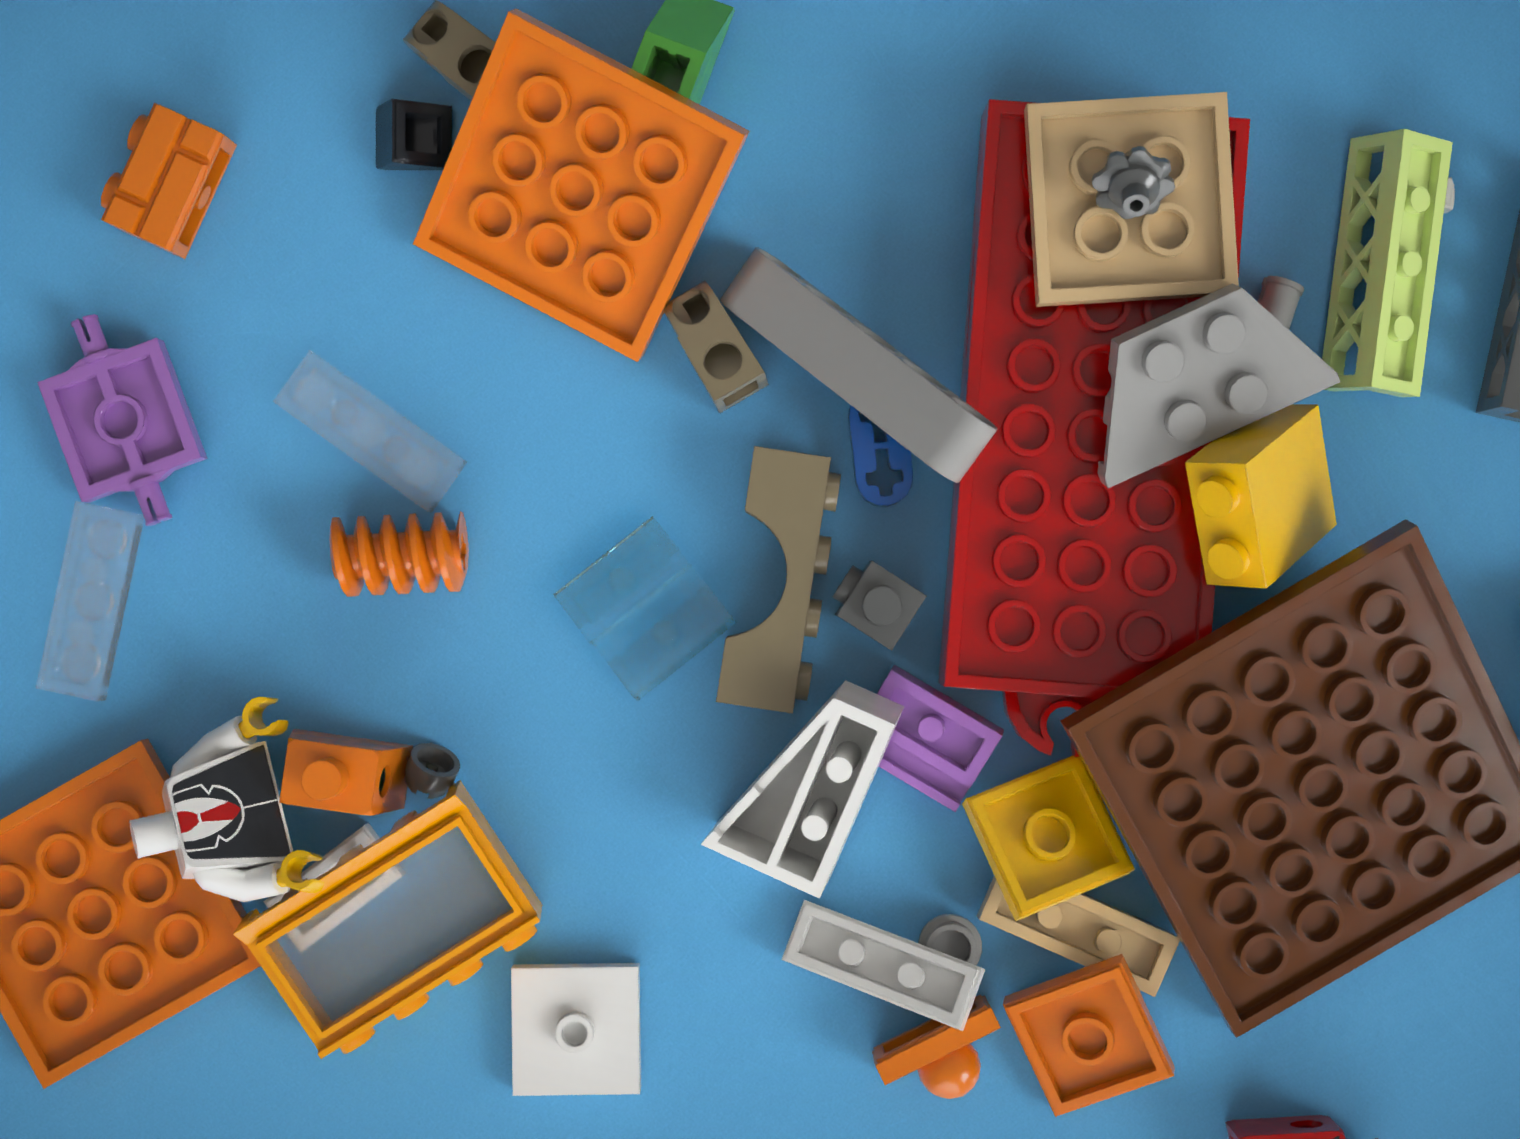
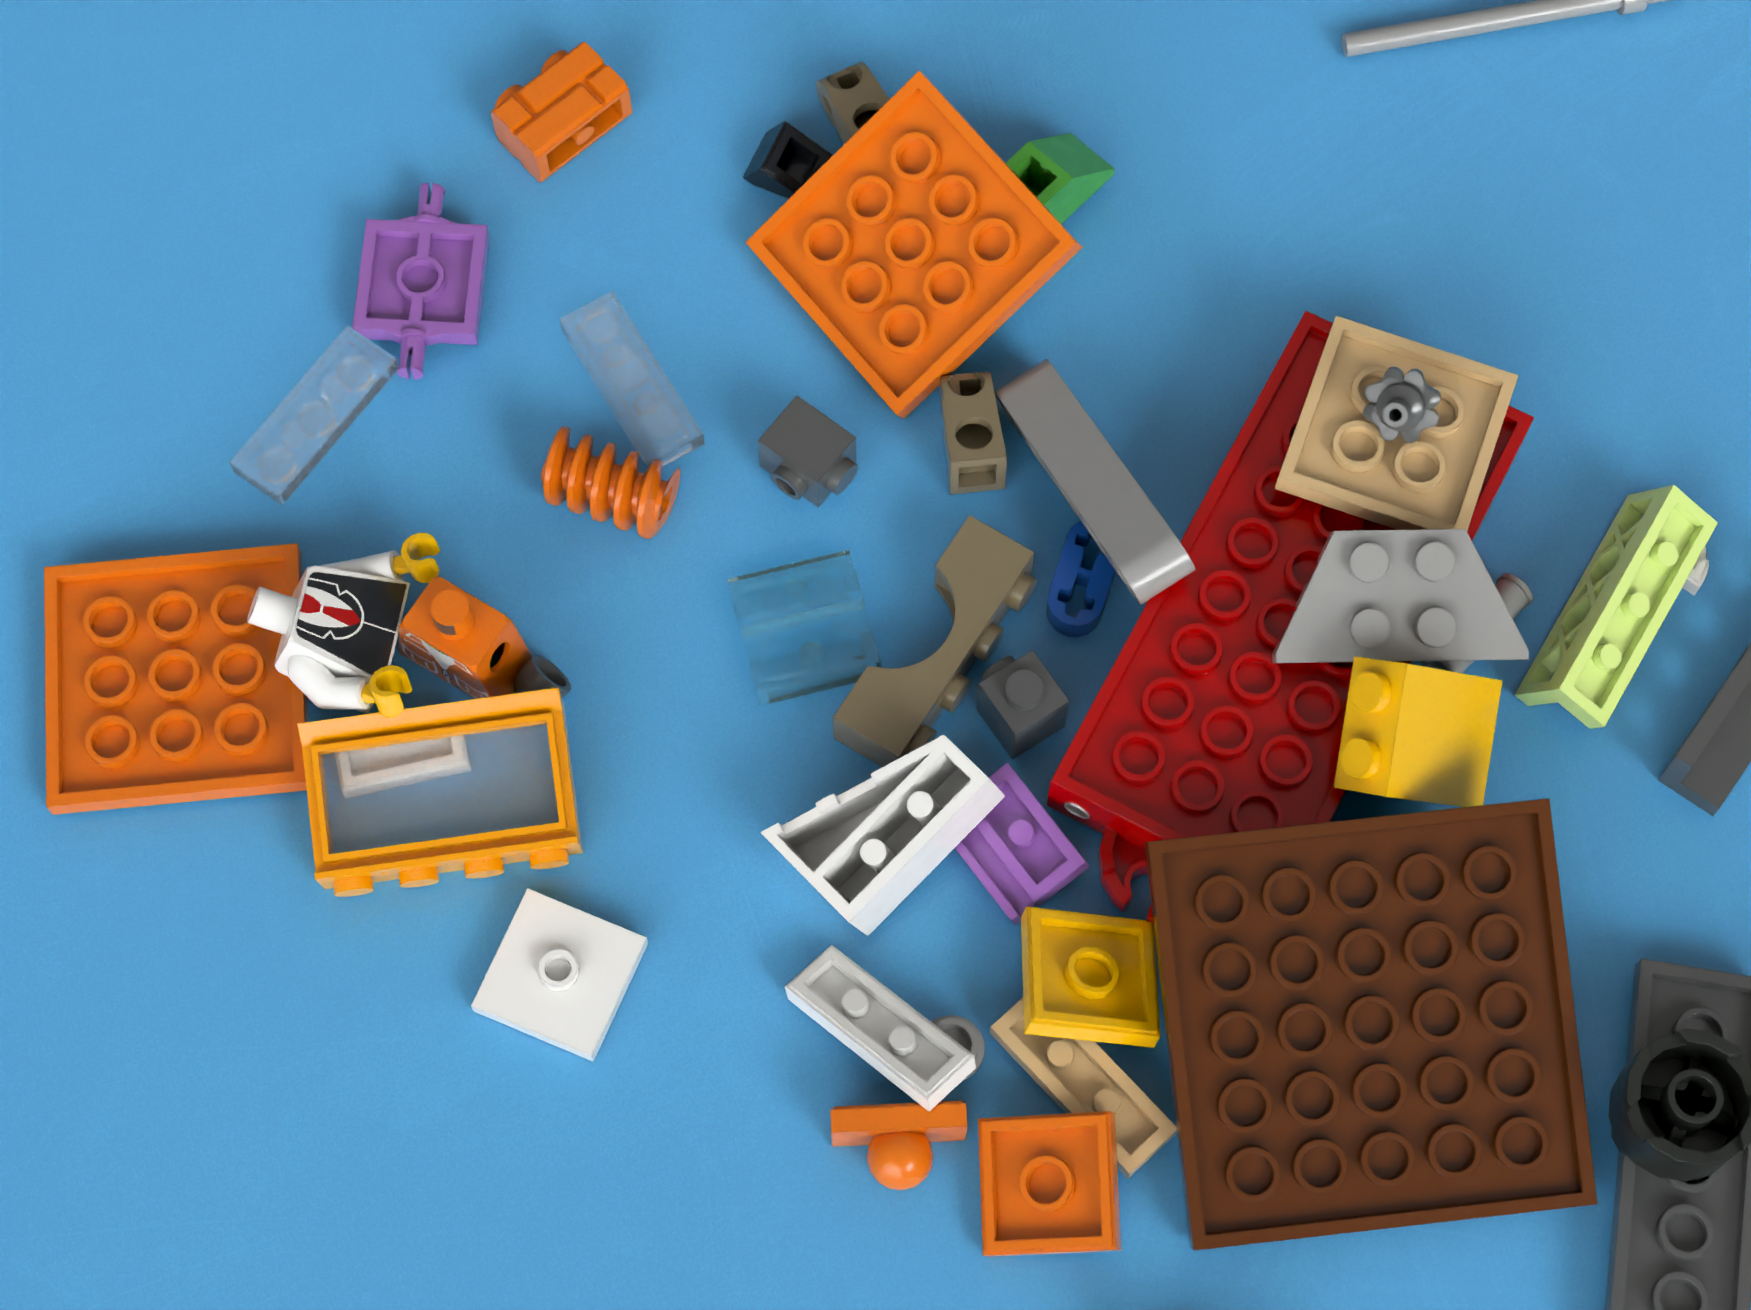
camera: 25 degrees right, 20 degrees down
(573, 440) = (808, 453): none -> dark grey brick

